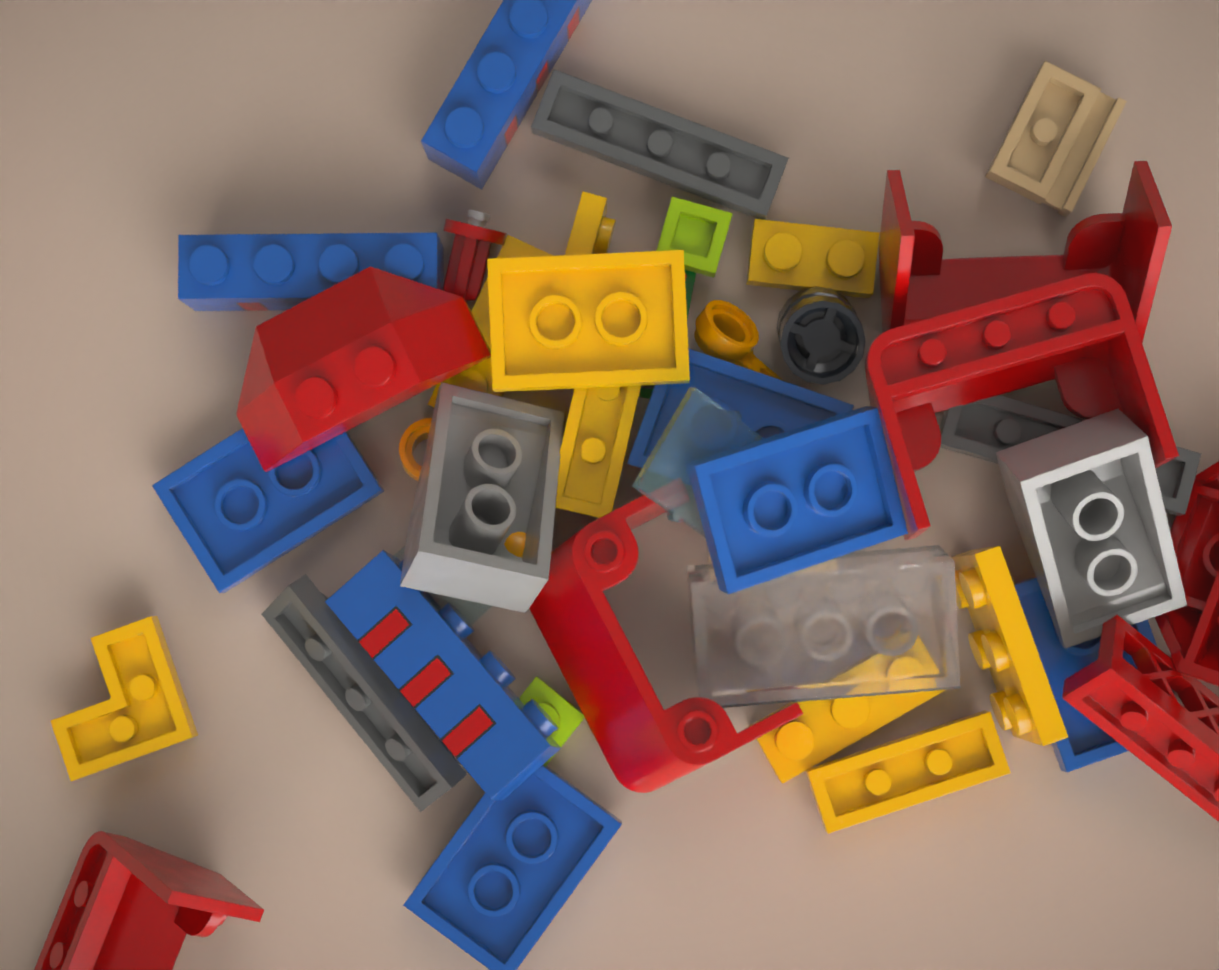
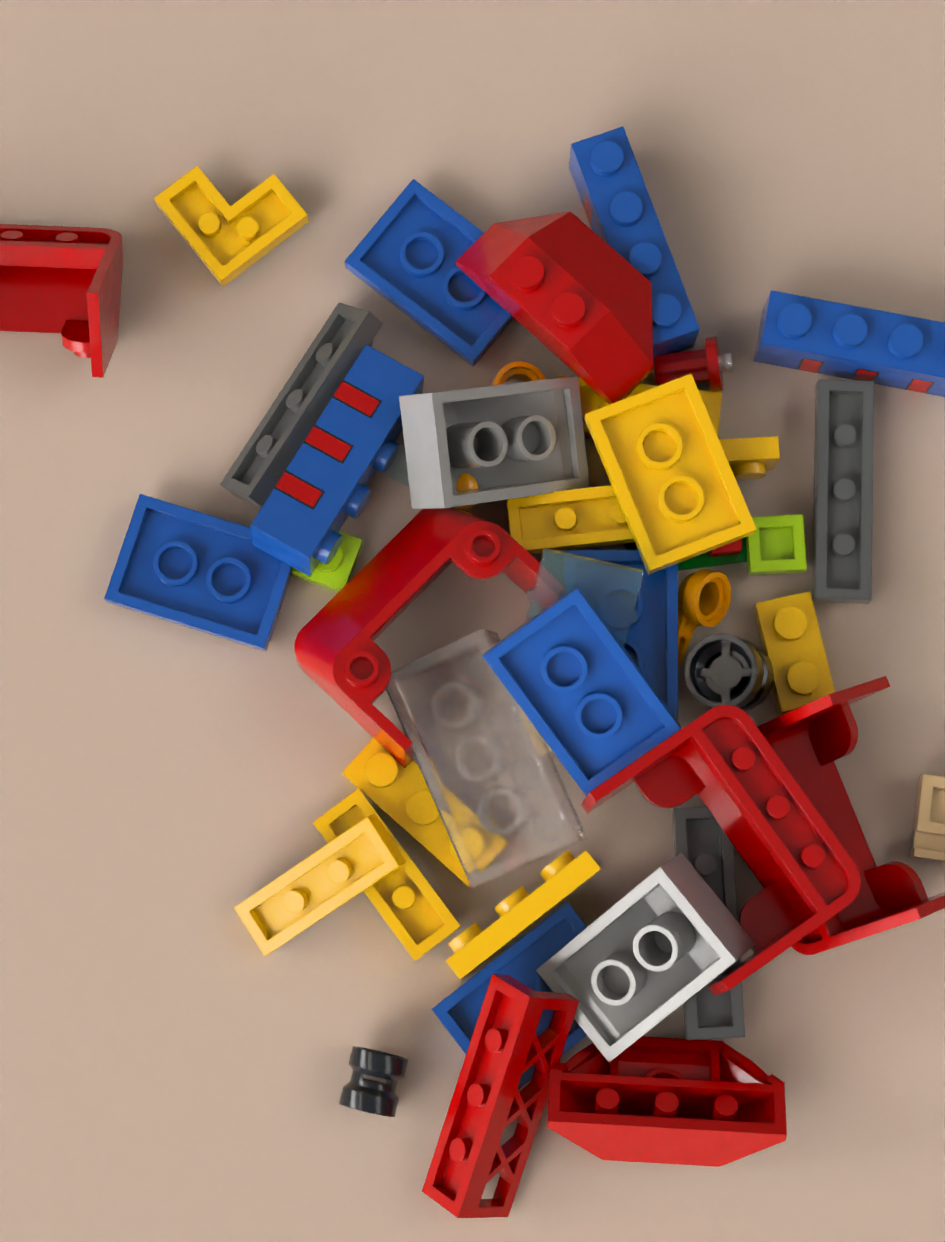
camera: 75 degrees right, 5 degrees down
(900, 848) = (320, 884): none -> yellow plate
(1121, 858) = (370, 1094): none -> black wheel

